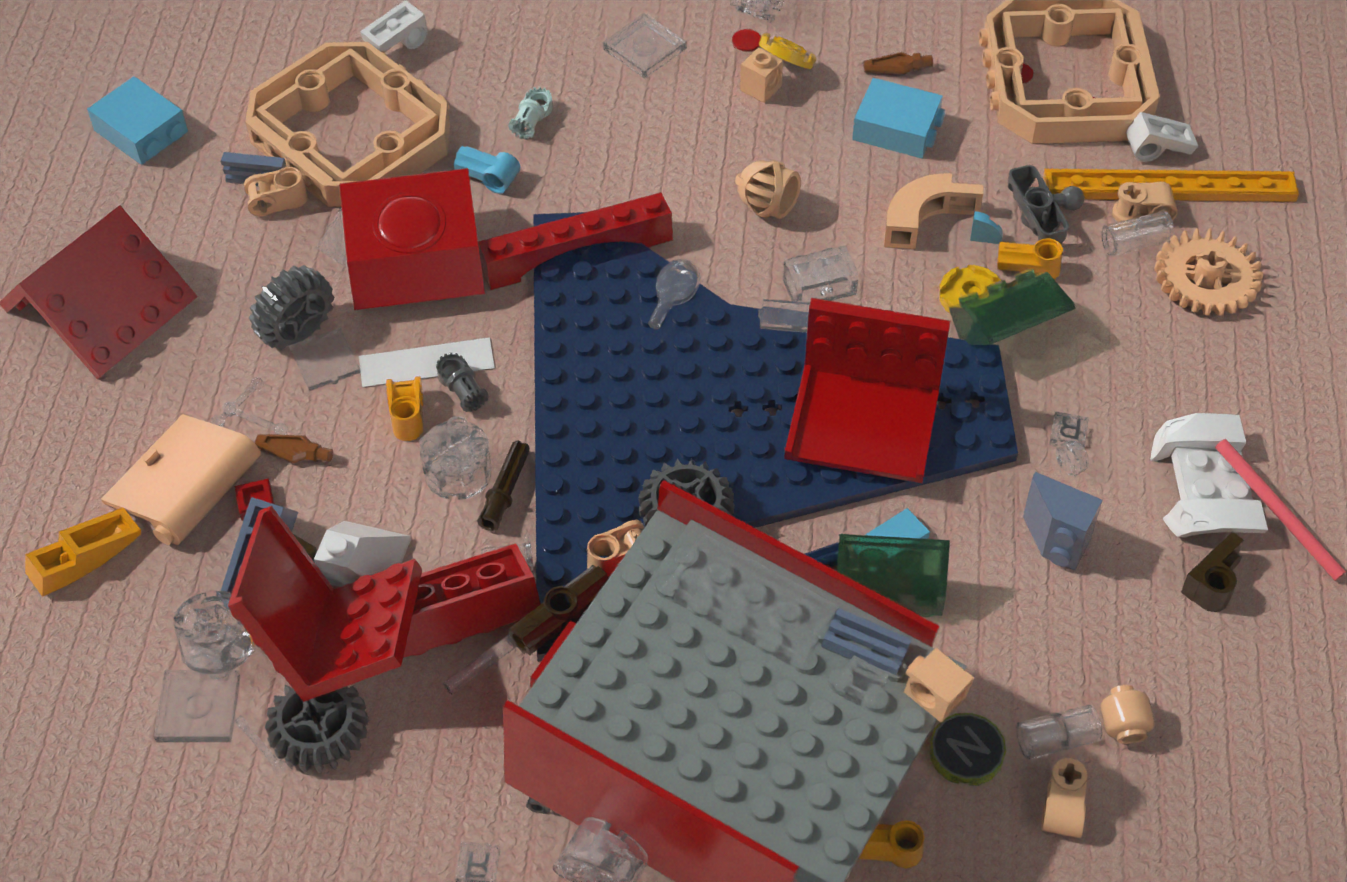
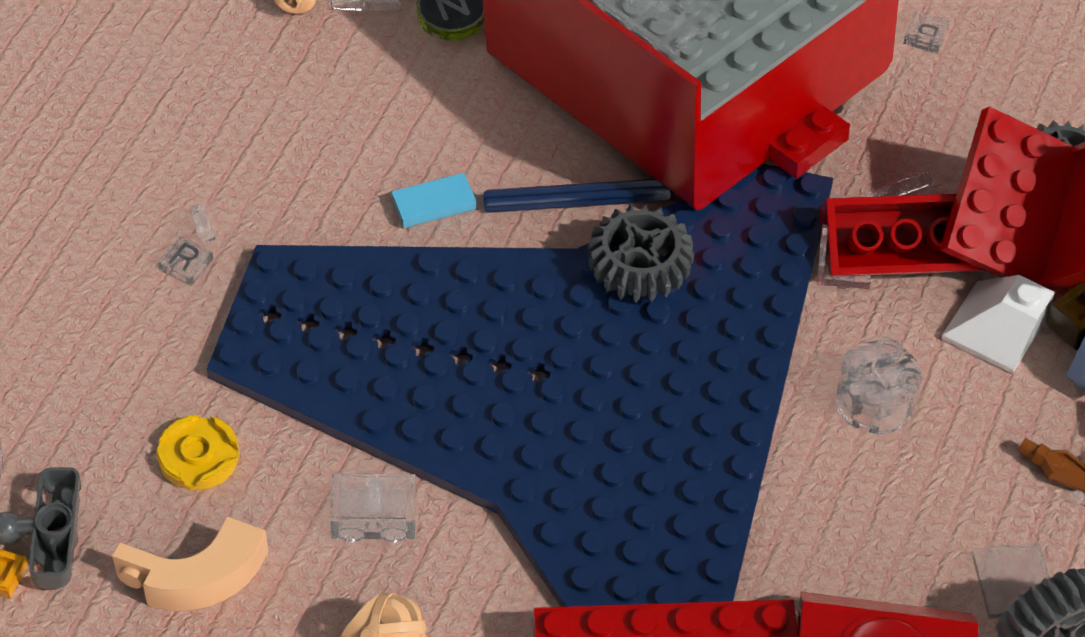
camera: 165 degrees left, 0 degrees up
(405, 408) = (926, 478): light orange piece -> none
(422, 361) = (888, 545): white sticker -> none
(461, 382) = (861, 493): dark grey connector -> none
(499, 496) = (835, 344): dark brown axle -> none
(545, 622) = (802, 183): dark brown piece -> none
(612, 544) = (728, 224): light nougat piece -> none
(674, 286) = (561, 530): clear piece -> none
(784, 315) = (436, 456): clear piece -> none
(868, 390) = (400, 298): red bracket -> none
(898, 568) = (456, 146): clear green slope -> none
(985, 230) = (137, 521): medium azure tile -> none
(1009, 308) = (177, 374): clear green slope -> none
(1042, 257) = (109, 462): light orange piece -> none
(1060, 520) = (257, 140): sand blue slope -> none
(1209, 487) = (78, 162): white piece -> none
(1216, 572) = (142, 80): dark brown plate -> none
(1277, 506) = (30, 117): coral piece -> none

